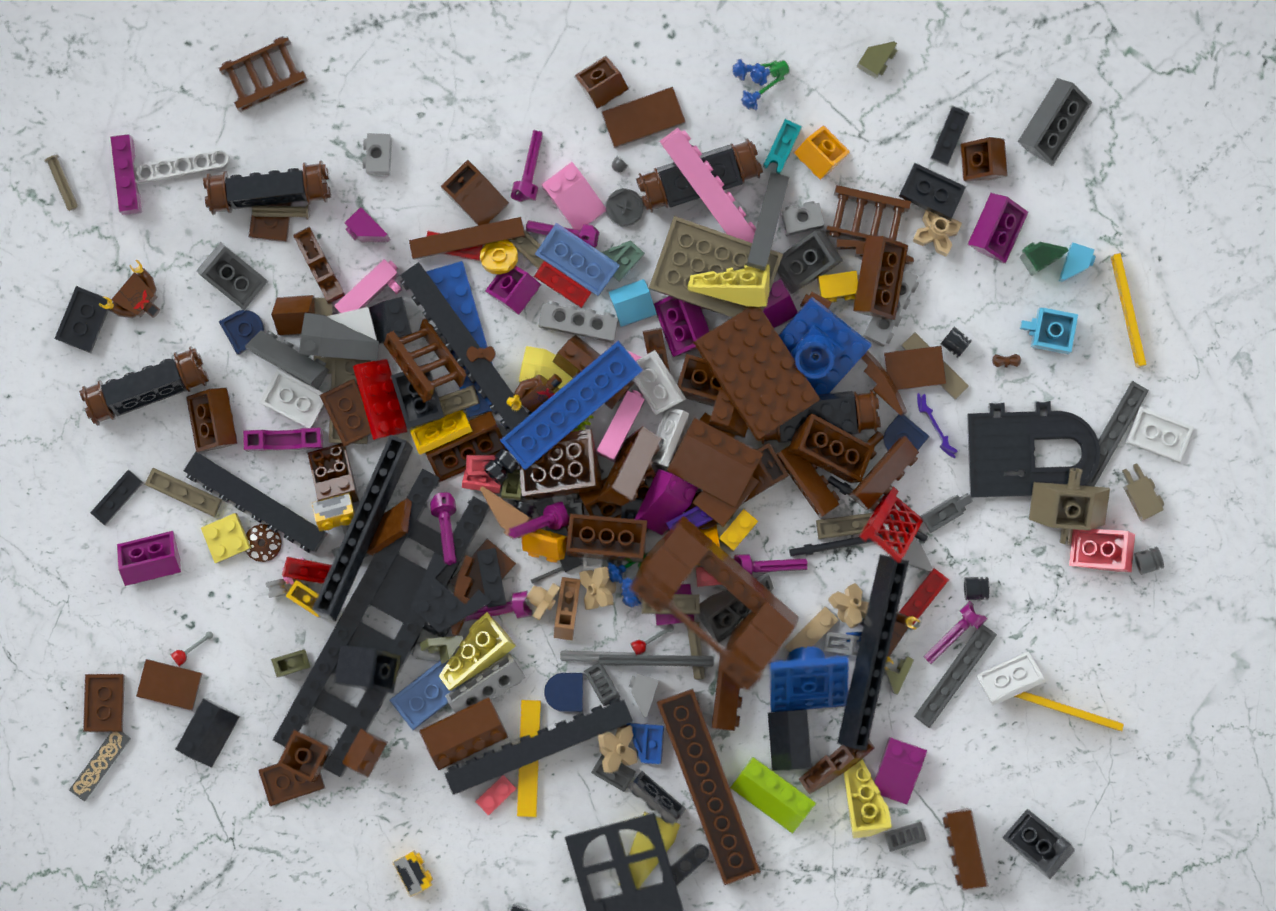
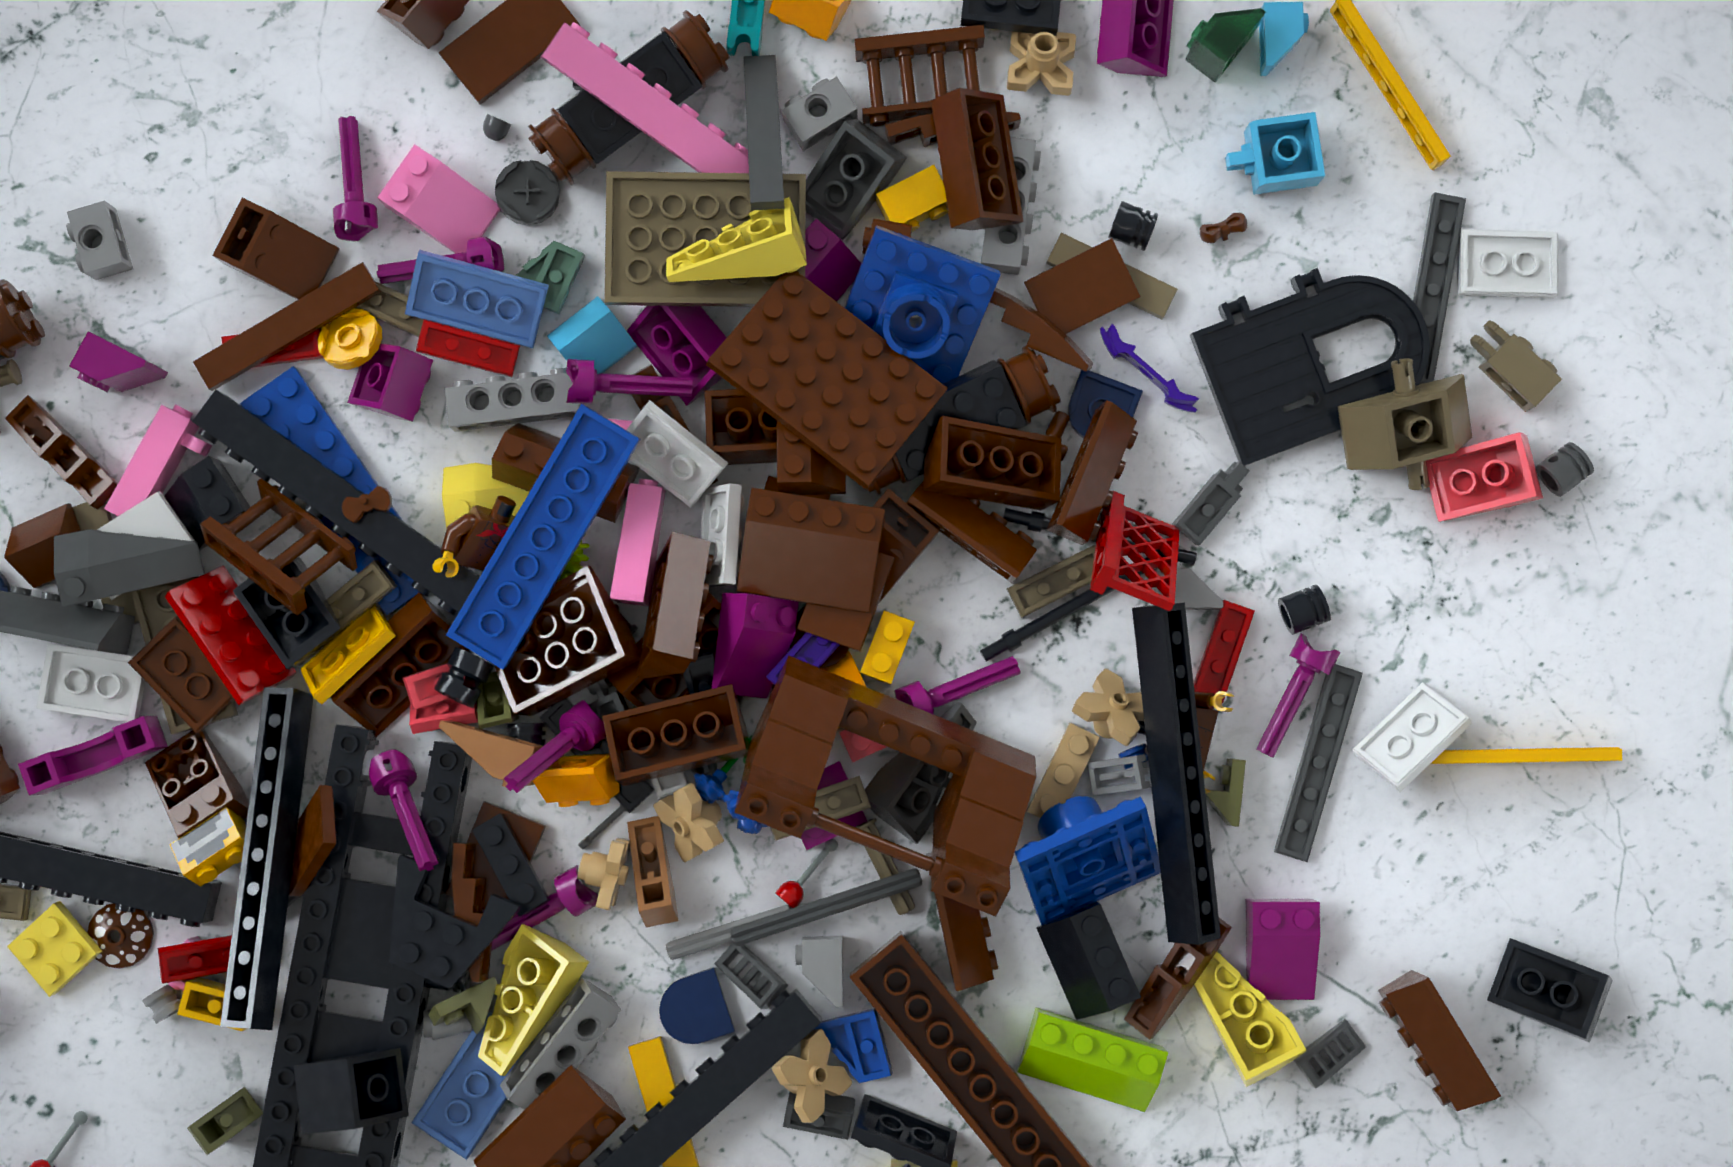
camera: 20 degrees left, 0 degrees up
(623, 328) = (587, 382): none -> magenta piece

